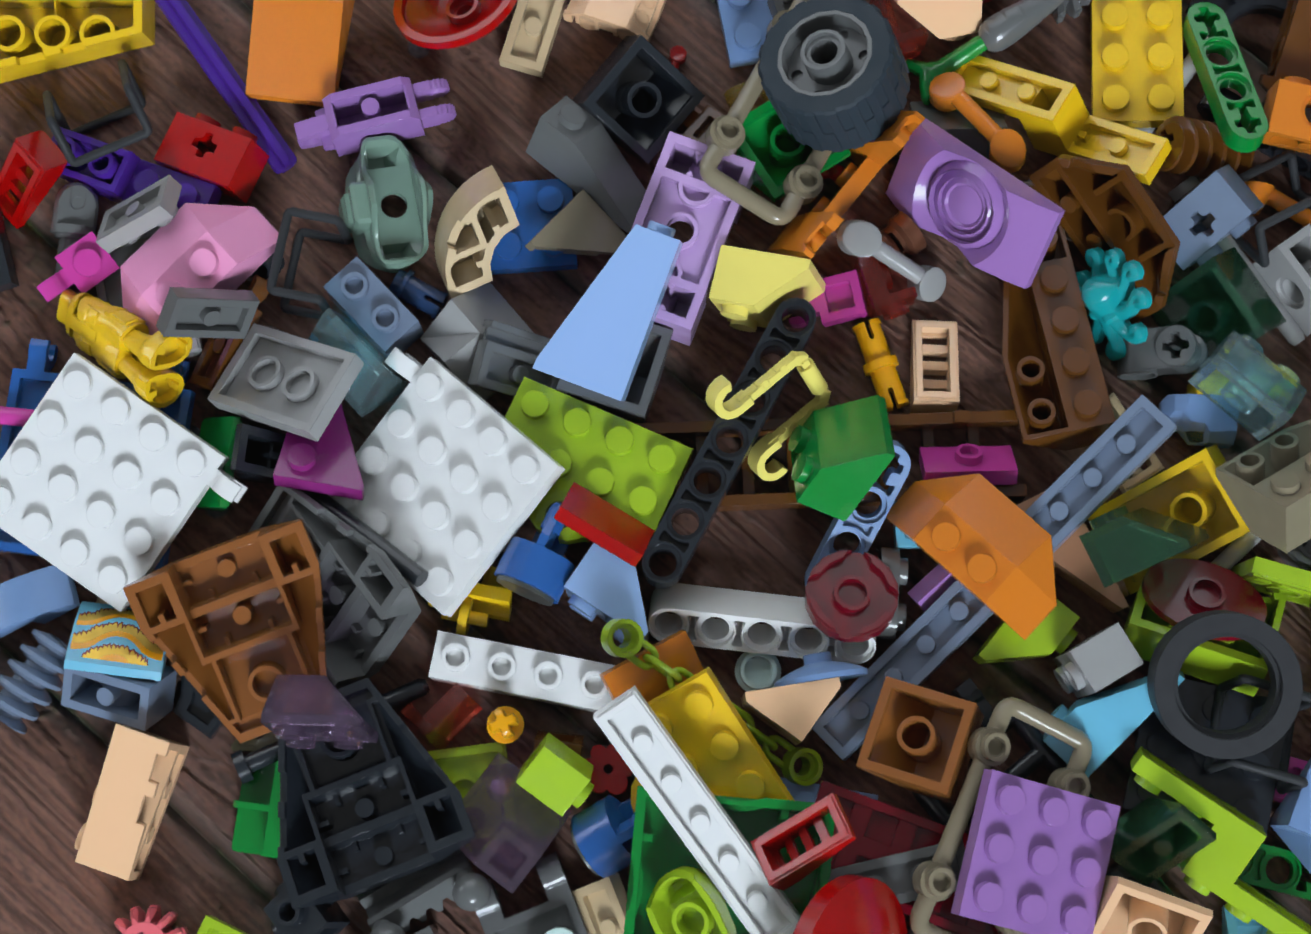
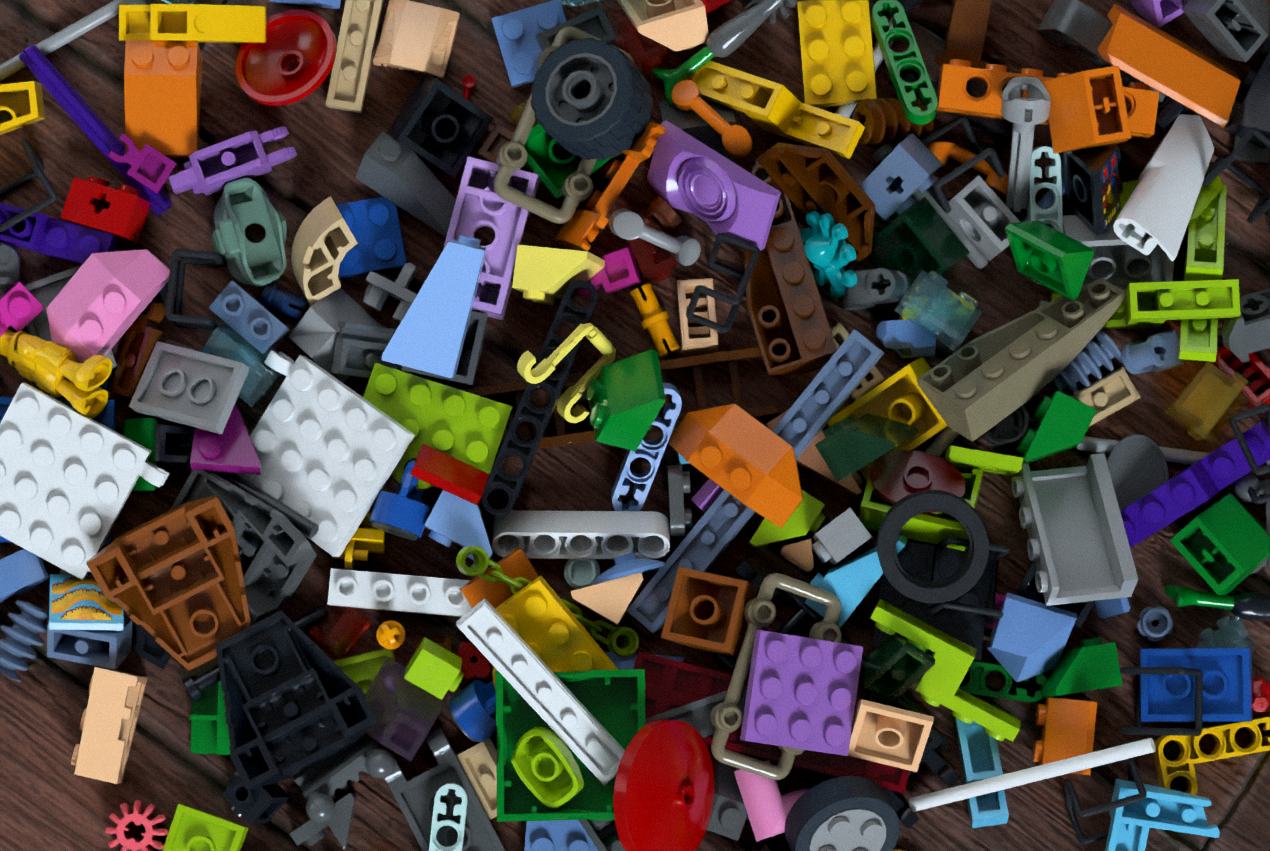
camera: 10 degrees left, 5 degrees up
(139, 214) = (56, 265): light grey plate -> none
(207, 313) = (123, 342): dark grey plate -> none
(269, 107) = (147, 166): none -> magenta plate
(313, 710) = (244, 640): clear purple slope -> none
(543, 288) = (381, 288): none -> light grey hips
(579, 230) = (405, 238): dark tan tile -> none
(768, 845) = (598, 704): red slope -> none
(851, 596) = (646, 507): dark red tile -> none
(990, 342) = (736, 301): none -> black piece
(992, 462) = (743, 391): dark pink plate -> none
(1039, 679) = (799, 554): none -> medium nougat slope

